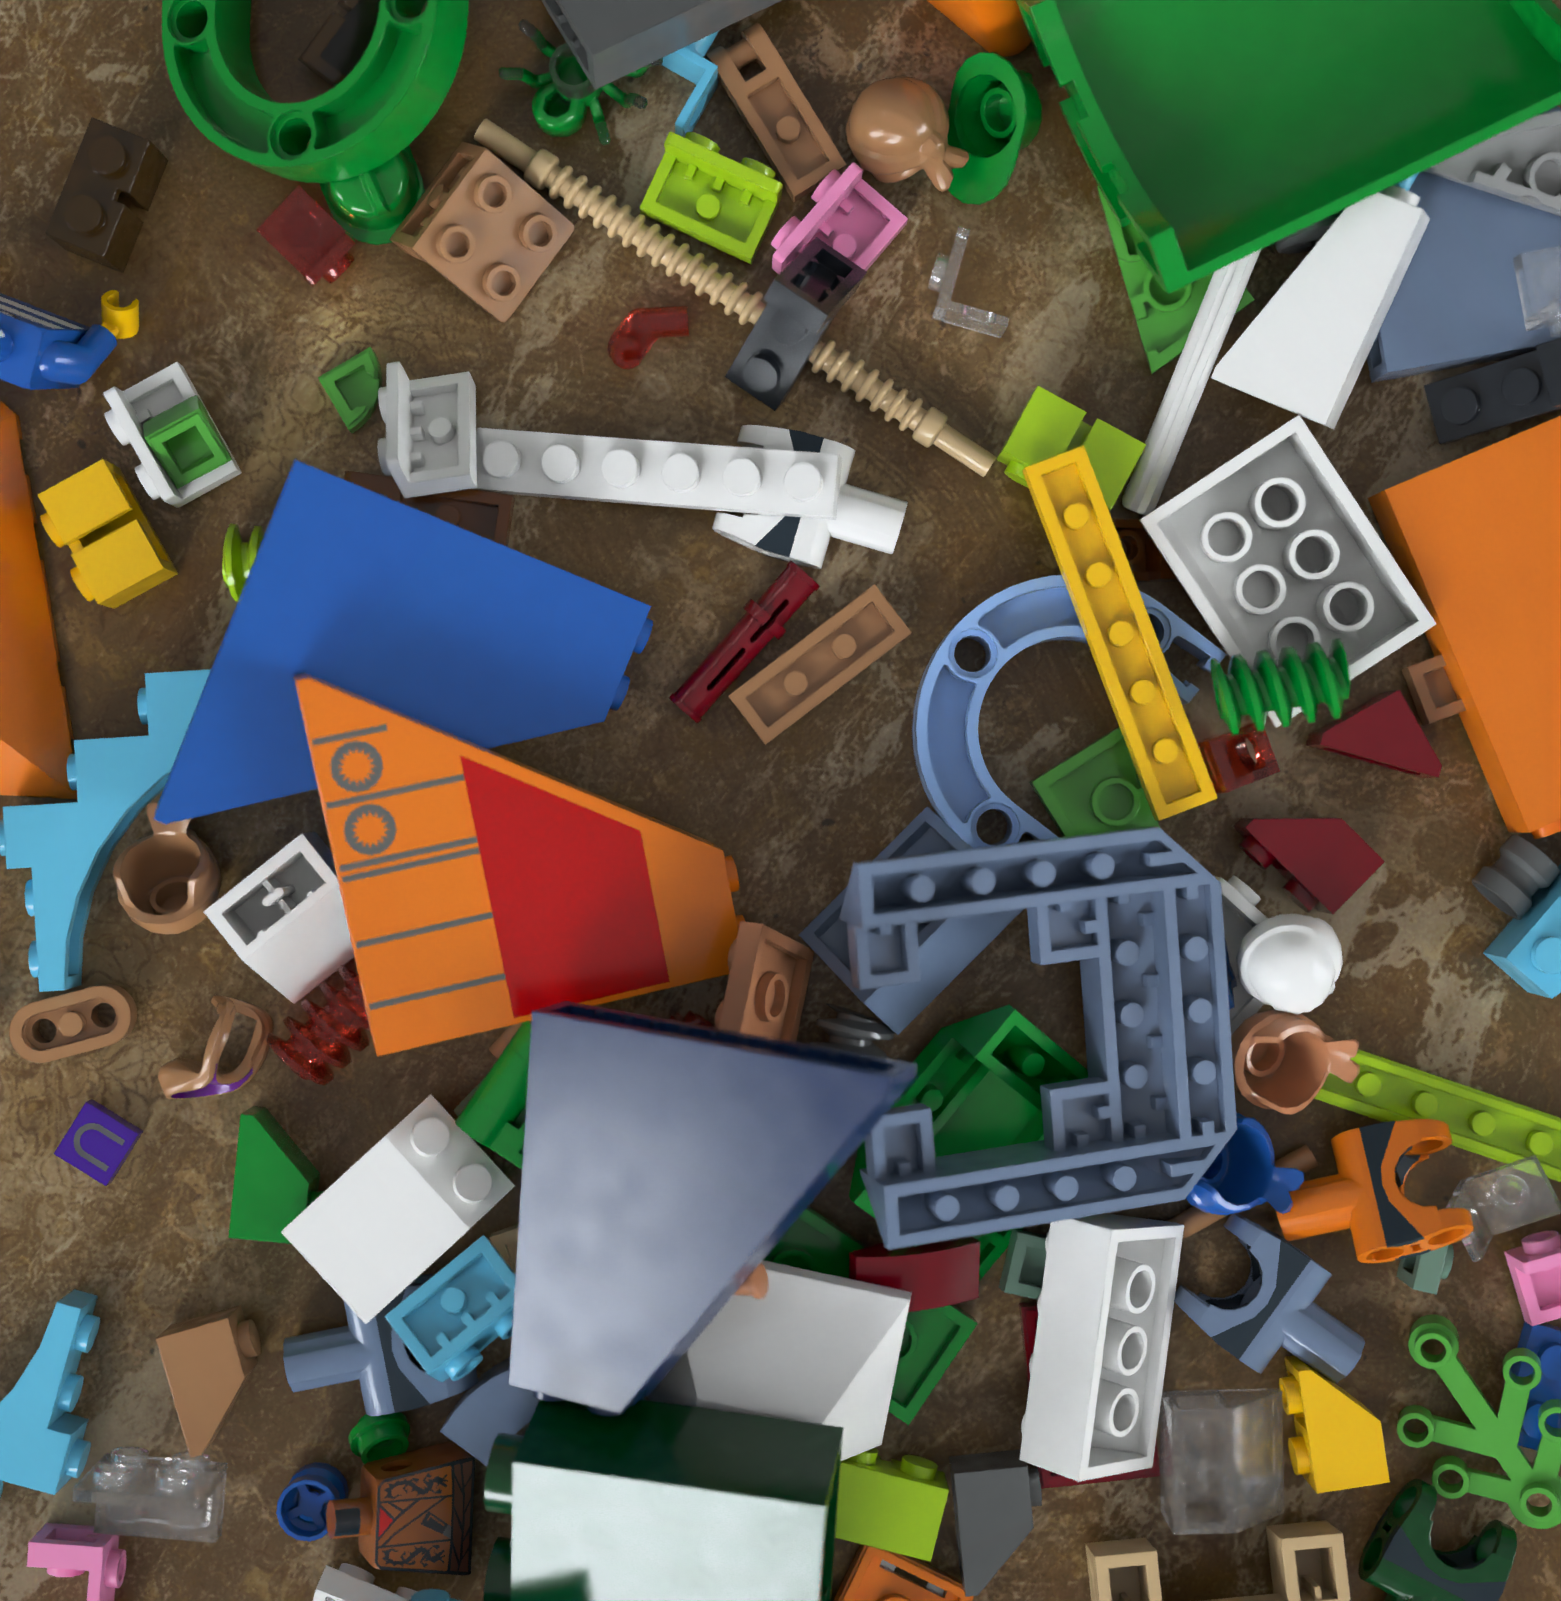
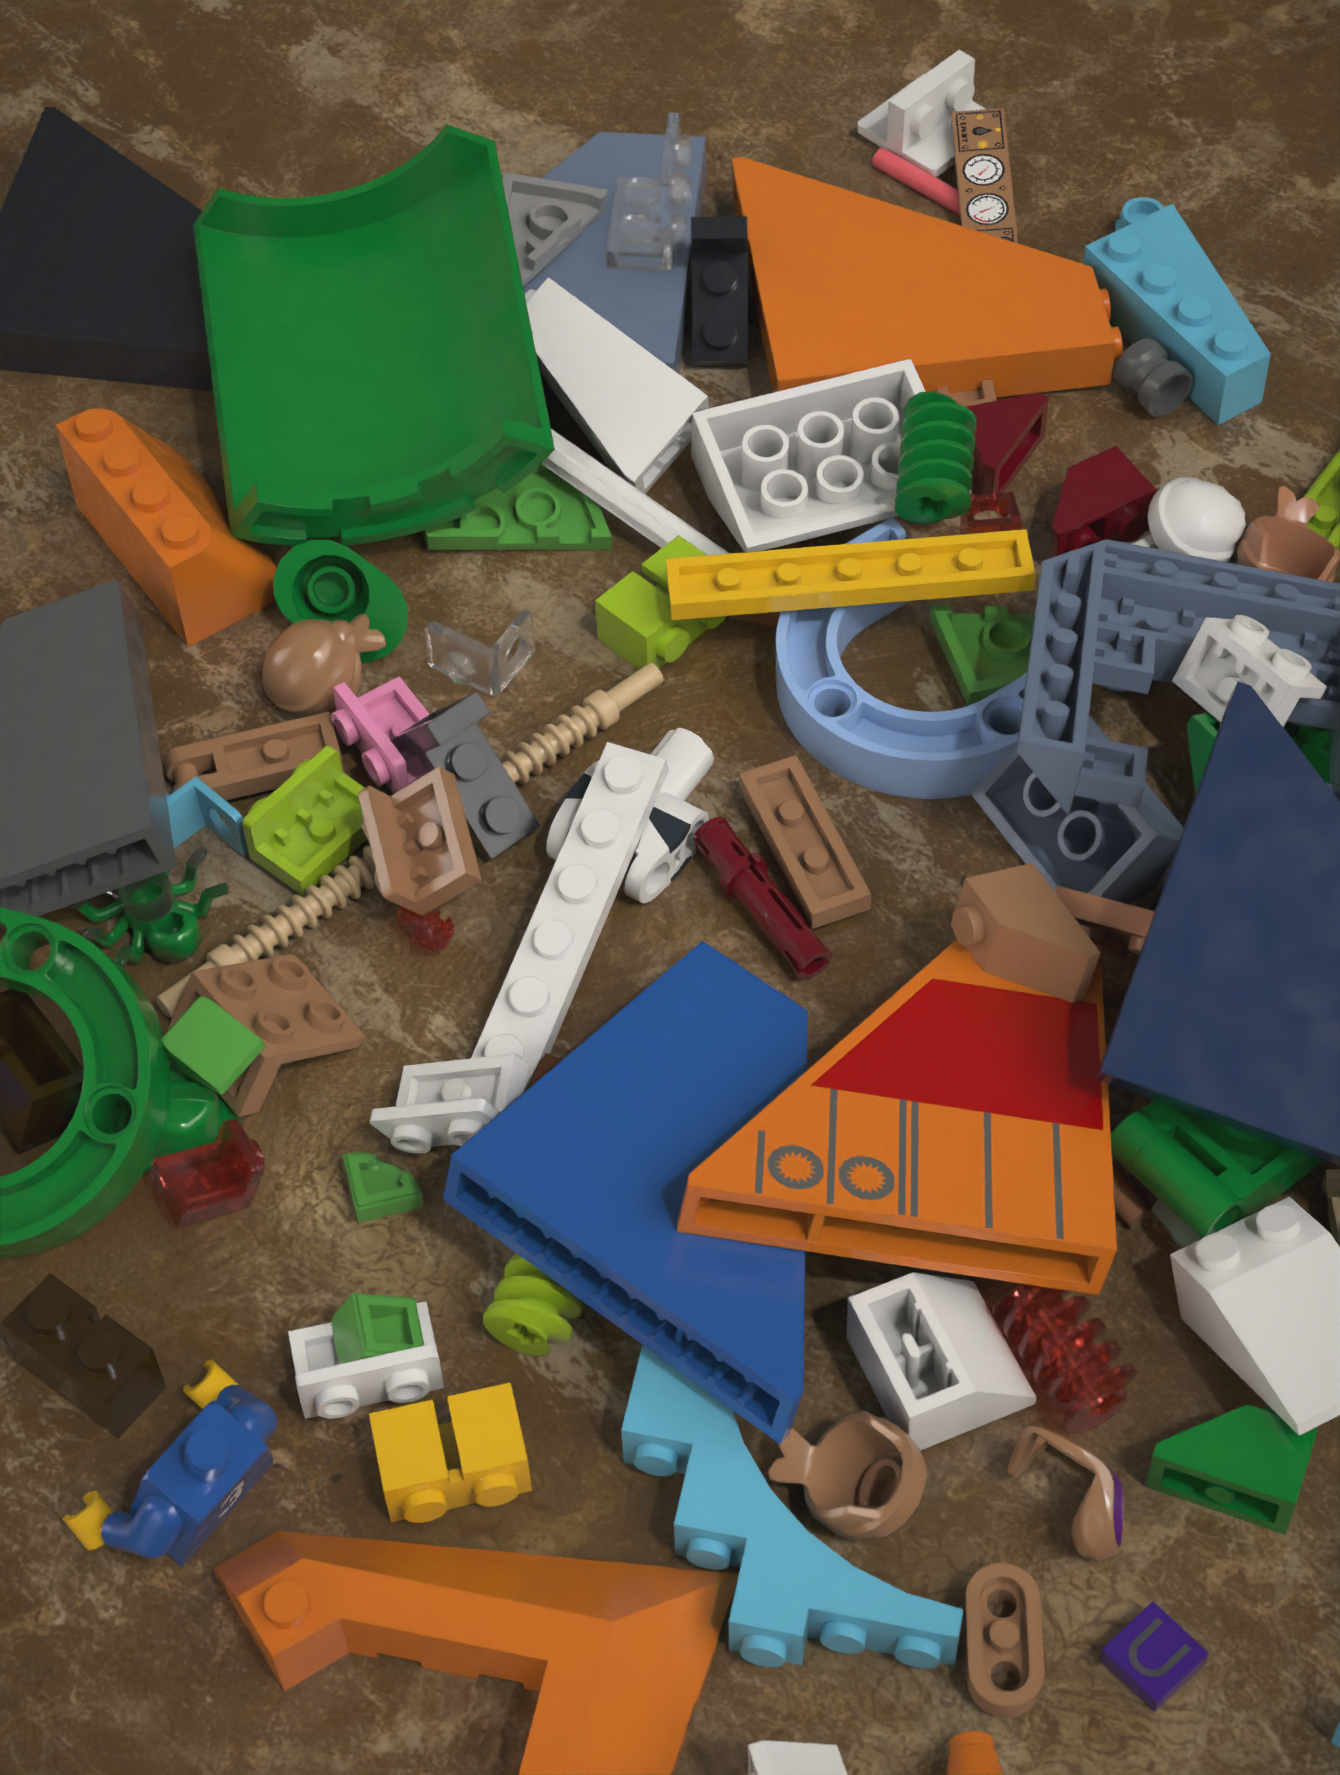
camera: 70 degrees left, 35 degrees down
(403, 198) = (211, 1045): none -> bright green slope
(691, 306) = (420, 842): none -> medium nougat bracket
(708, 902) = (1024, 932): none -> medium nougat slope
(1065, 1056) = (1241, 652): none -> white bracket

